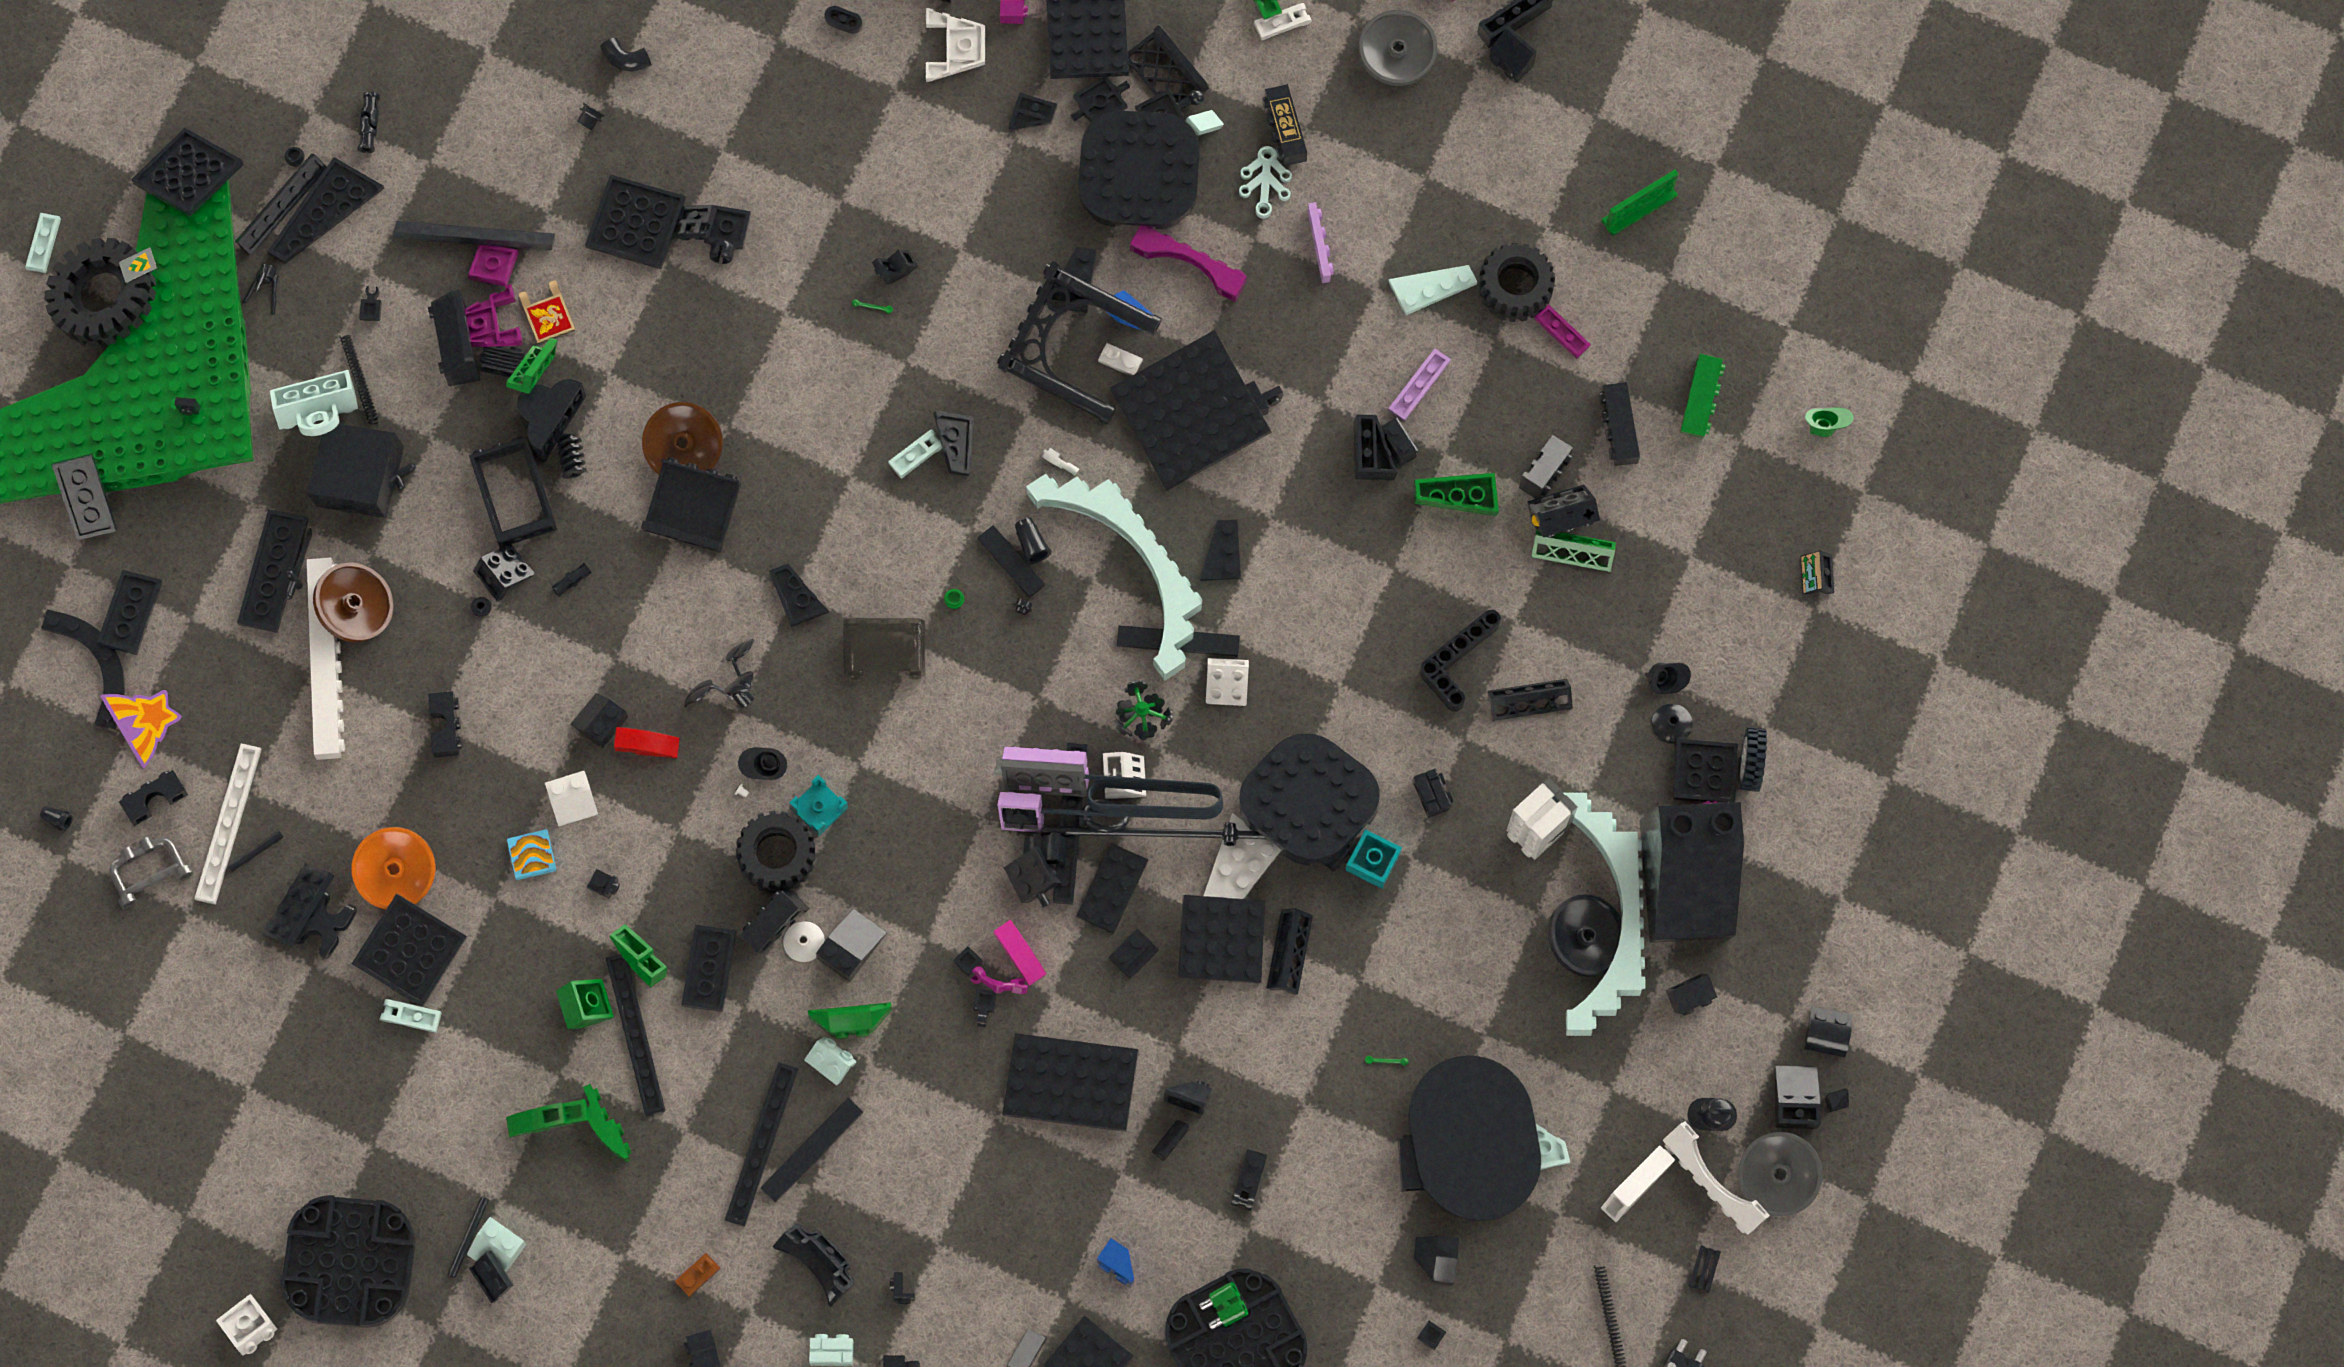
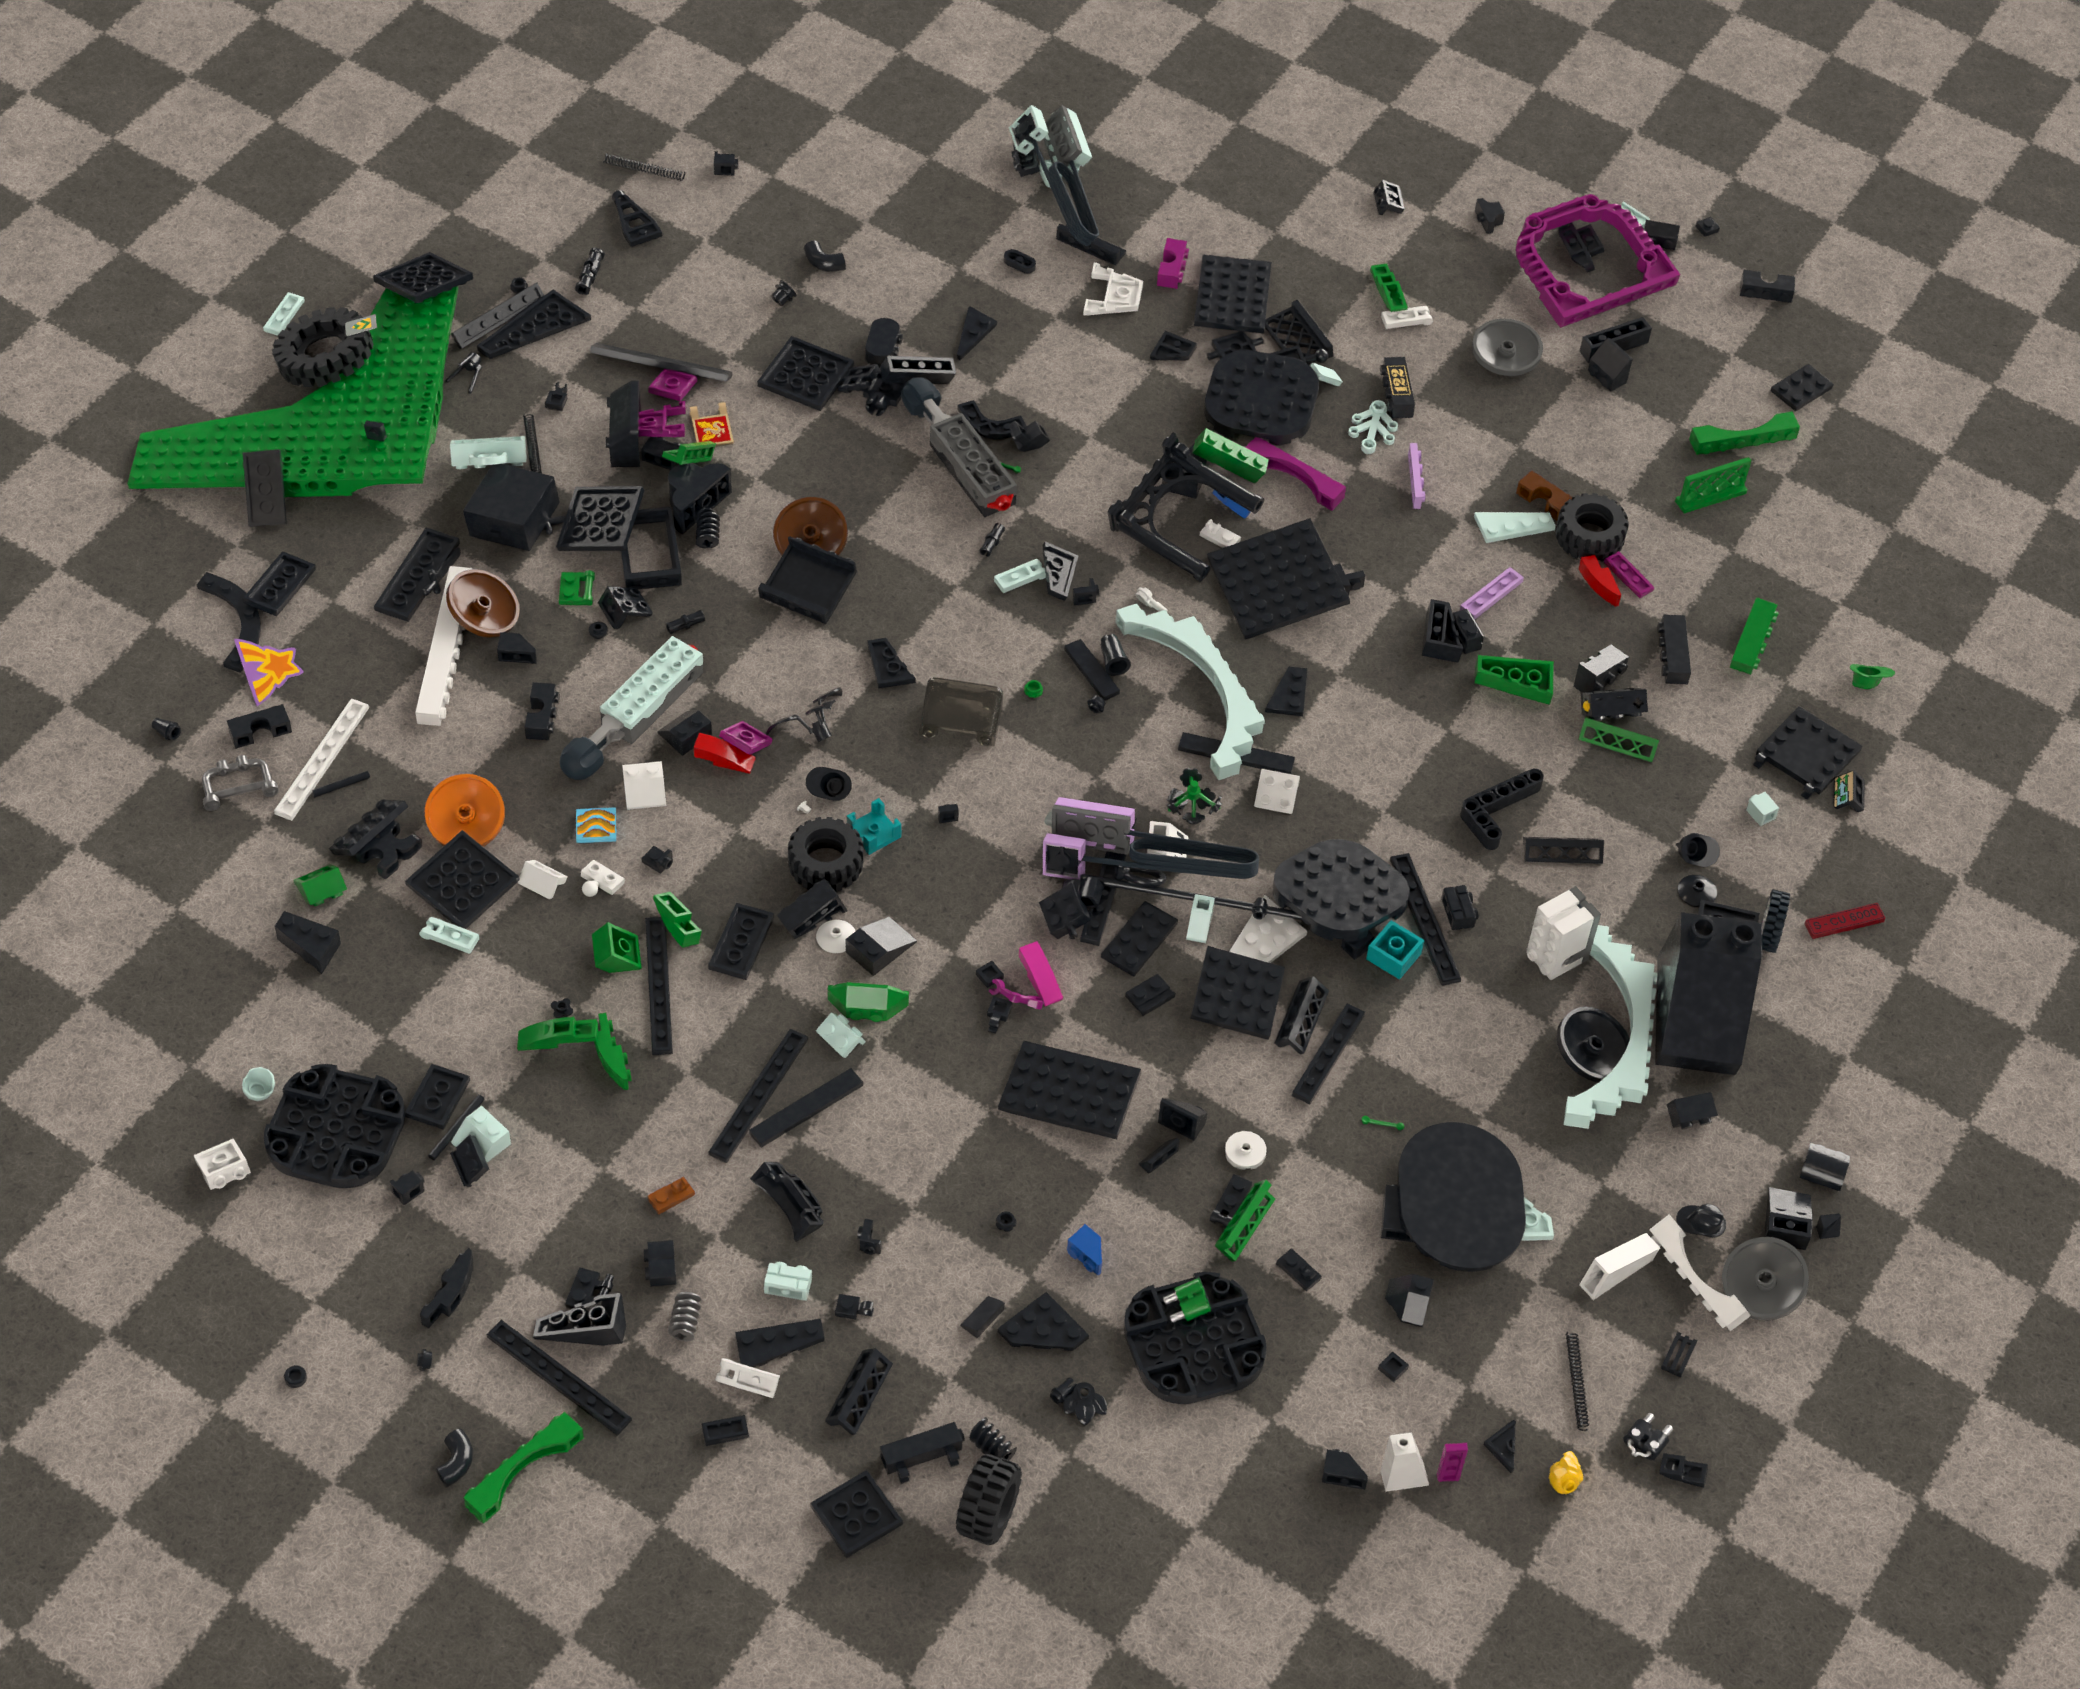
camera: 10 degrees right, 20 degrees down
(260, 1229) = (258, 1084): none -> light aqua hair
(264, 980) = (321, 885): none -> green slope
(269, 1050) = (308, 939): none -> black wedge
(398, 649) = (515, 648): none -> black slope
(415, 56) = (638, 234): none -> black plate
(436, 1315) = (407, 1186): none -> black brick
(440, 559) = (570, 588): none -> green plate
(442, 1207) = (437, 1096): none -> black plate
(454, 467) = (600, 518): none -> black plate
(489, 929) = (540, 878): none -> white panel
(542, 701) = (635, 705): none -> piece
(542, 1087) = (561, 1013): none -> black plate
(550, 917) = (600, 877): none -> white plate
(665, 719) = (745, 737): none -> magenta plate
(712, 164) = (882, 341): none -> black brick
(758, 203) = (902, 369): none -> black brick
(810, 123) = (975, 328): none -> black wing
(824, 302) = (961, 450): none -> dark grey piece
(847, 260) = (985, 426): none -> black plate
(877, 410) = (992, 539): none -> black pin
(891, 773) = (948, 813): none -> black plate
(988, 468) = (1086, 595): none -> black bracket
(1037, 1244) = (1006, 1216): none -> black plate
(1117, 261) = (1230, 455): none -> green brick
(1171, 858) = (1200, 918): none -> light aqua slope
(1251, 1128) = (1245, 1158): none -> white plate
(1264, 1198) = (1241, 1220): none -> green fence
(1322, 991) = (1328, 1054): none -> black plate
(1326, 1243) = (1298, 1269): none -> black plate
(1399, 811) = (1427, 922): none -> black tile
(1450, 233) = (1535, 486): none -> reddish brown arch
(1532, 346) = (1600, 579): none -> red slope
(1633, 133) = (1712, 439): none -> green arch
(1724, 39) = (1801, 387): none -> black plate
(1729, 612) = (1762, 808): none -> light aqua brick
(1770, 527) = (1808, 751): none -> black plate
(1825, 733) = (1844, 920): none -> dark red tile

